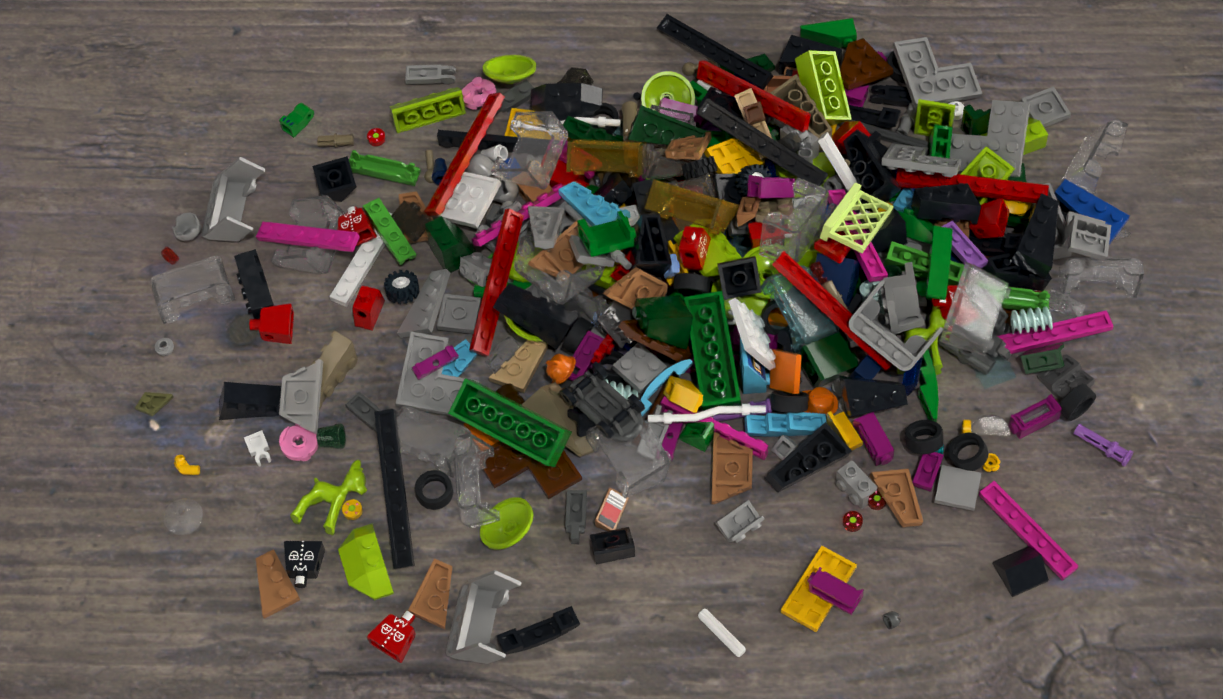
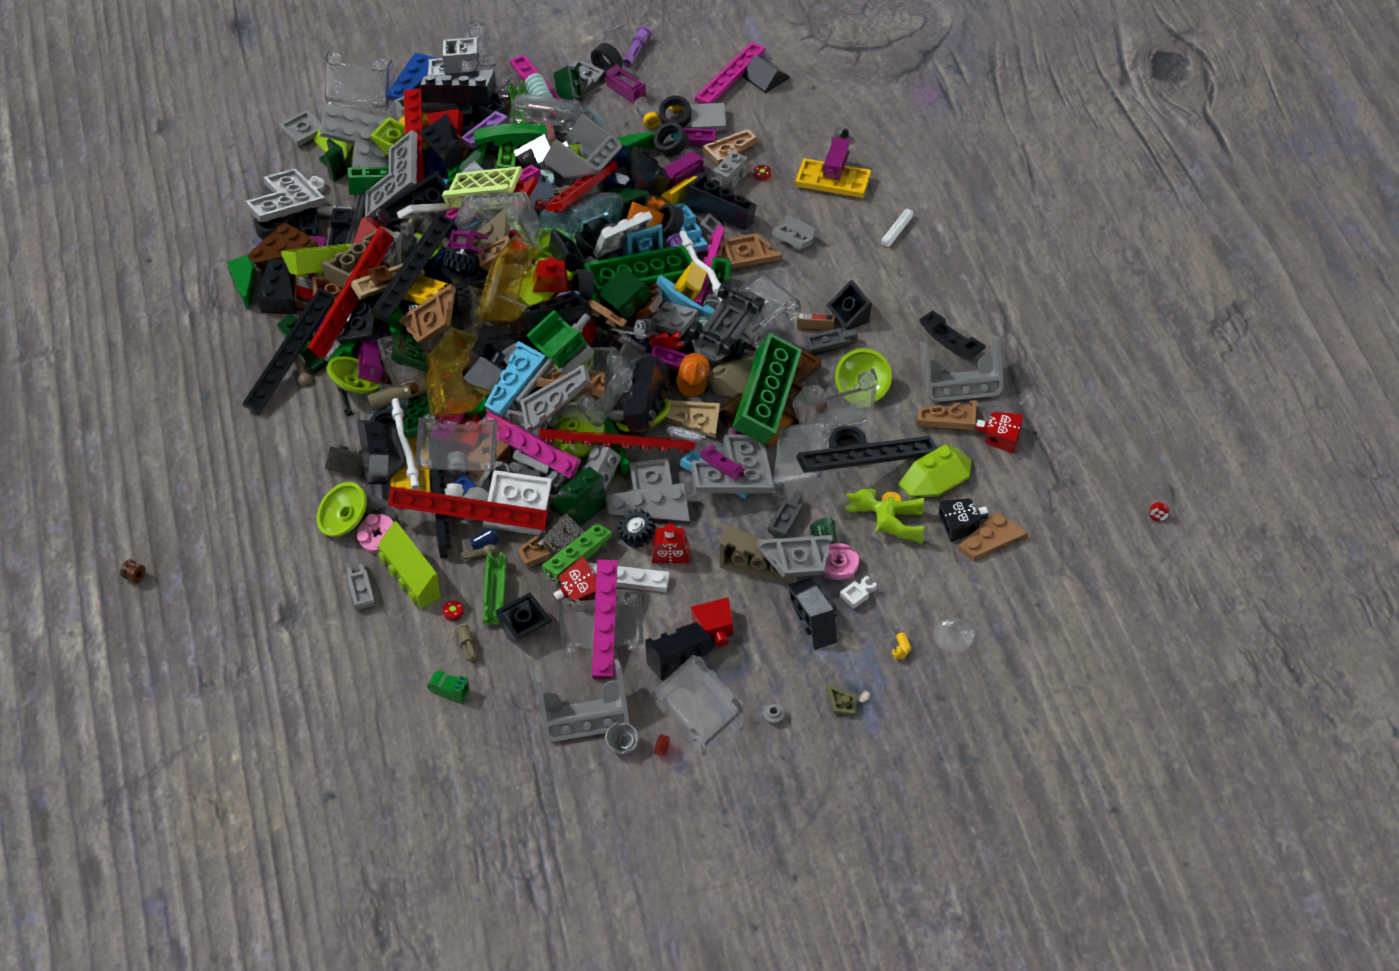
camera: 110 degrees left, 10 degrees down
(933, 113) = (336, 183): lime slope -> none

